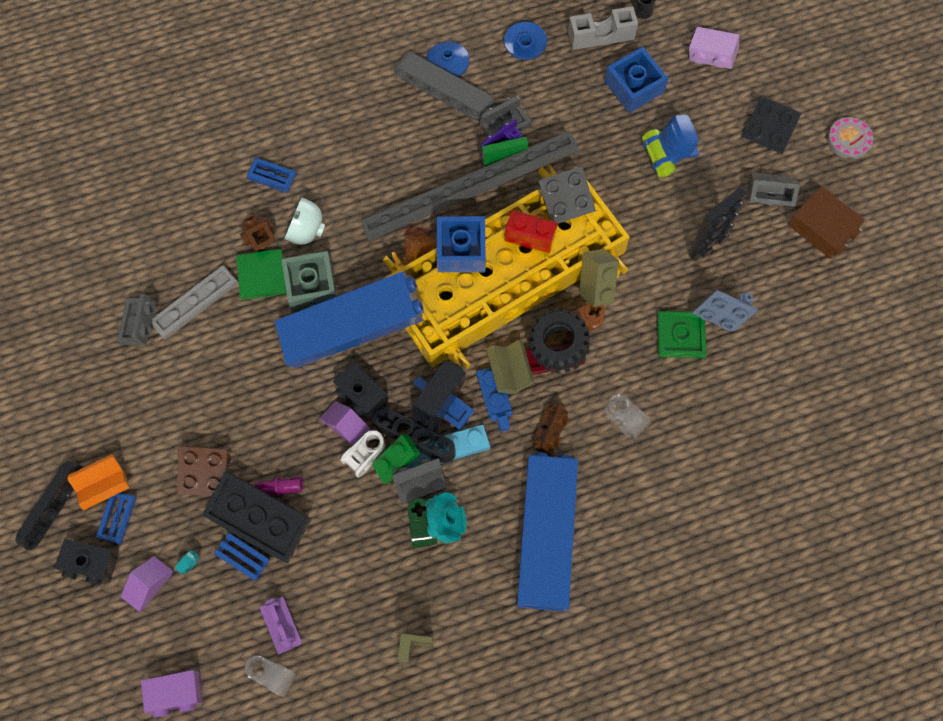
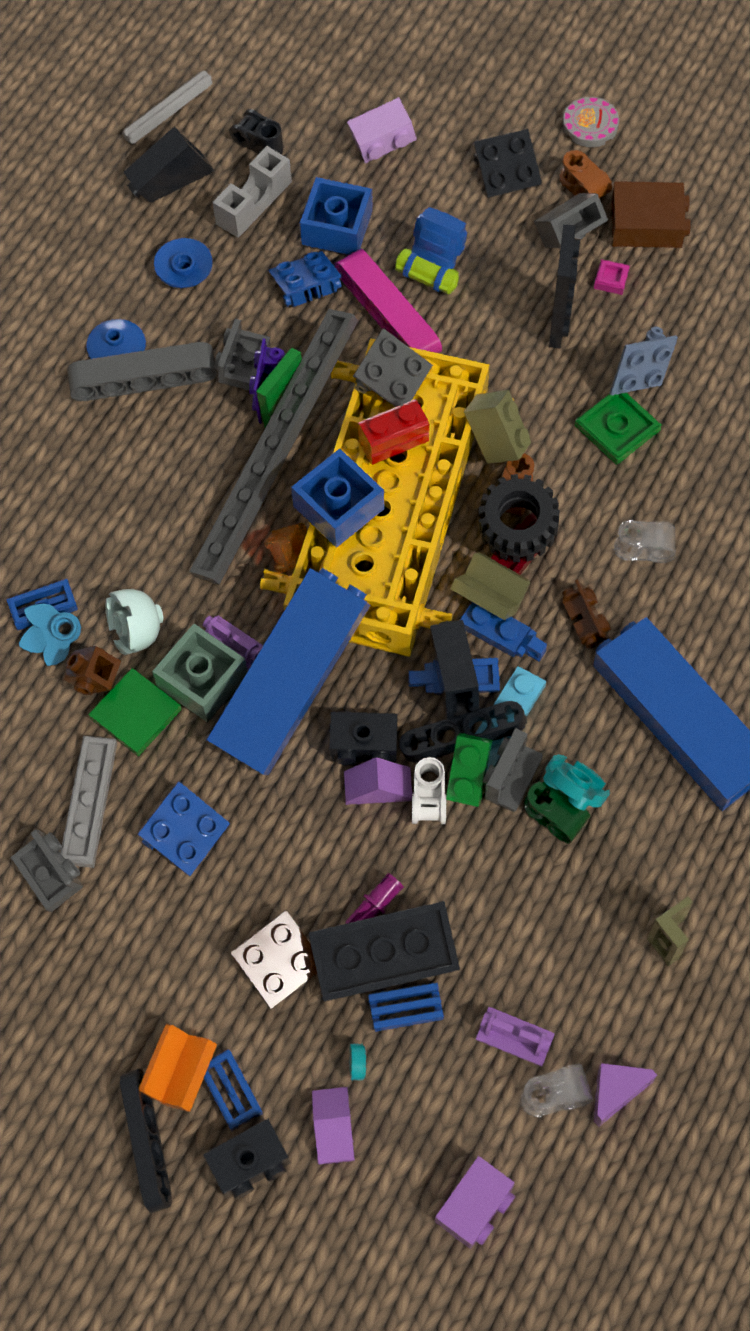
camera: 40 degrees left, 5 degrees down
(223, 358) = (183, 829): none -> blue hinge
(257, 194) = (45, 633): none -> dark azure plate
(301, 703) = (617, 1087): none -> medium lavender slope
(344, 274) = (233, 638): none -> medium lavender hinge
(586, 100) = (309, 272): none -> blue hinge
(615, 156) = (386, 302): none -> dark pink beam
(767, 243) = (611, 277): none -> dark pink tile
(809, 169) = (583, 176): none -> dark orange piece

